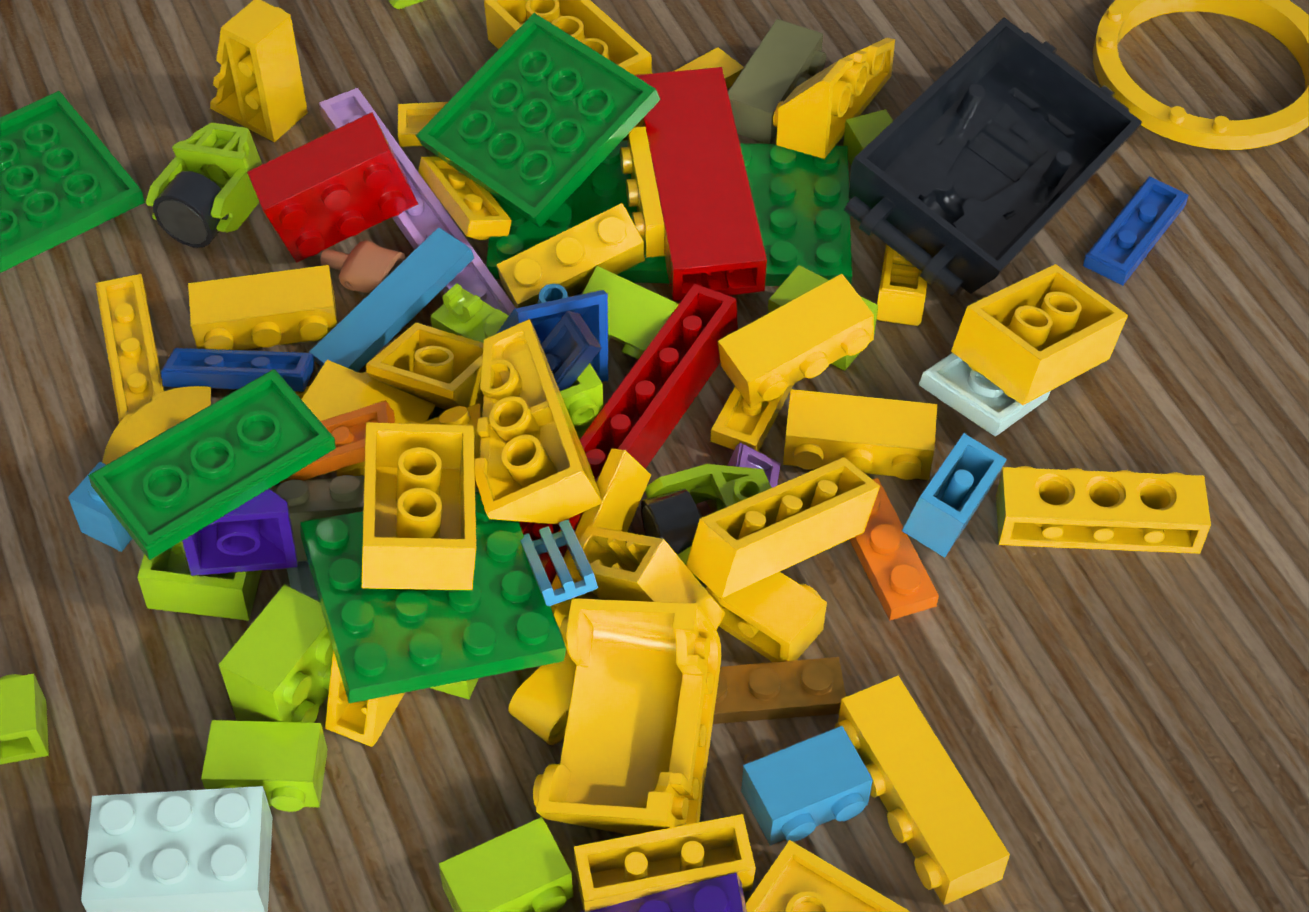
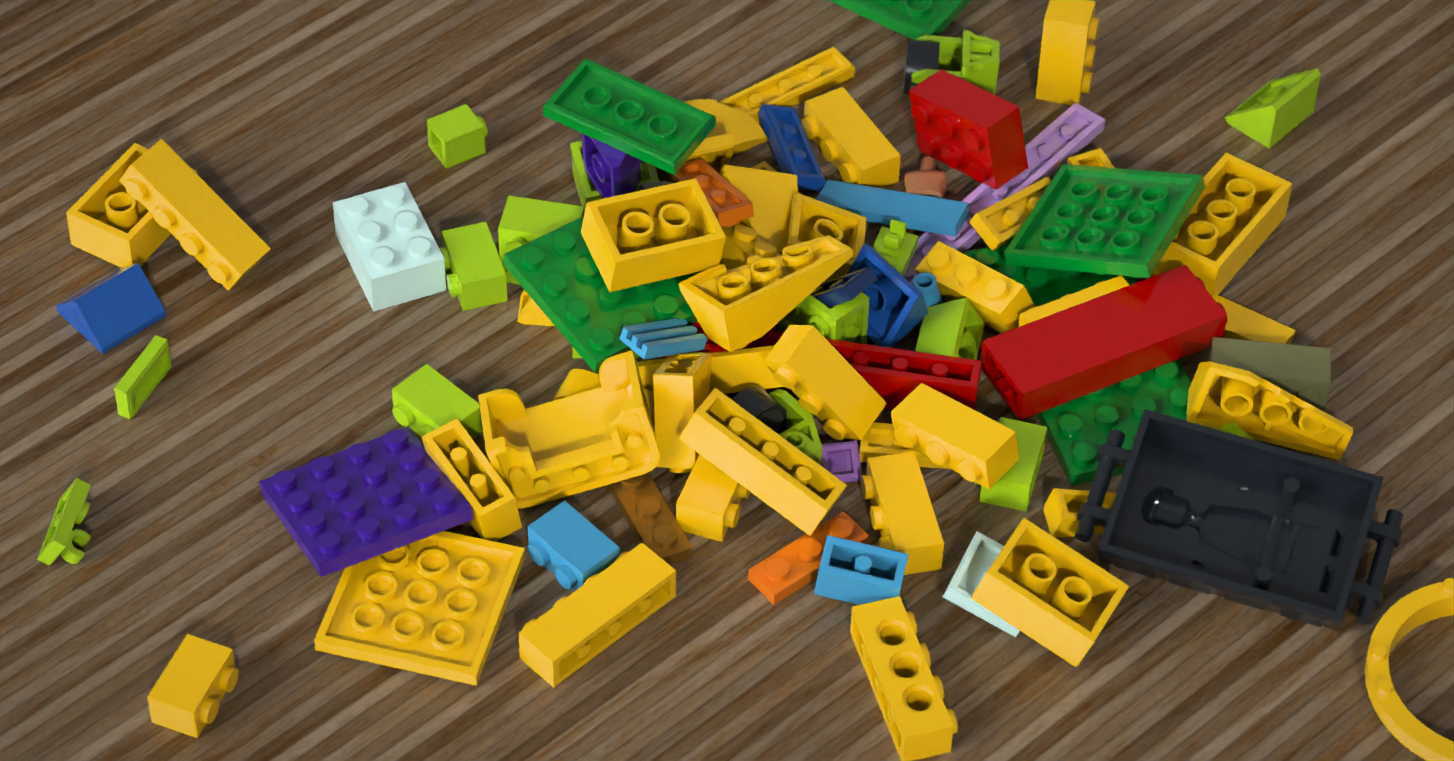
camera: 70 degrees right, 5 degrees down
(681, 427) = (824, 382): none -> yellow brick
(1135, 230) = (1238, 662): blue tile -> none

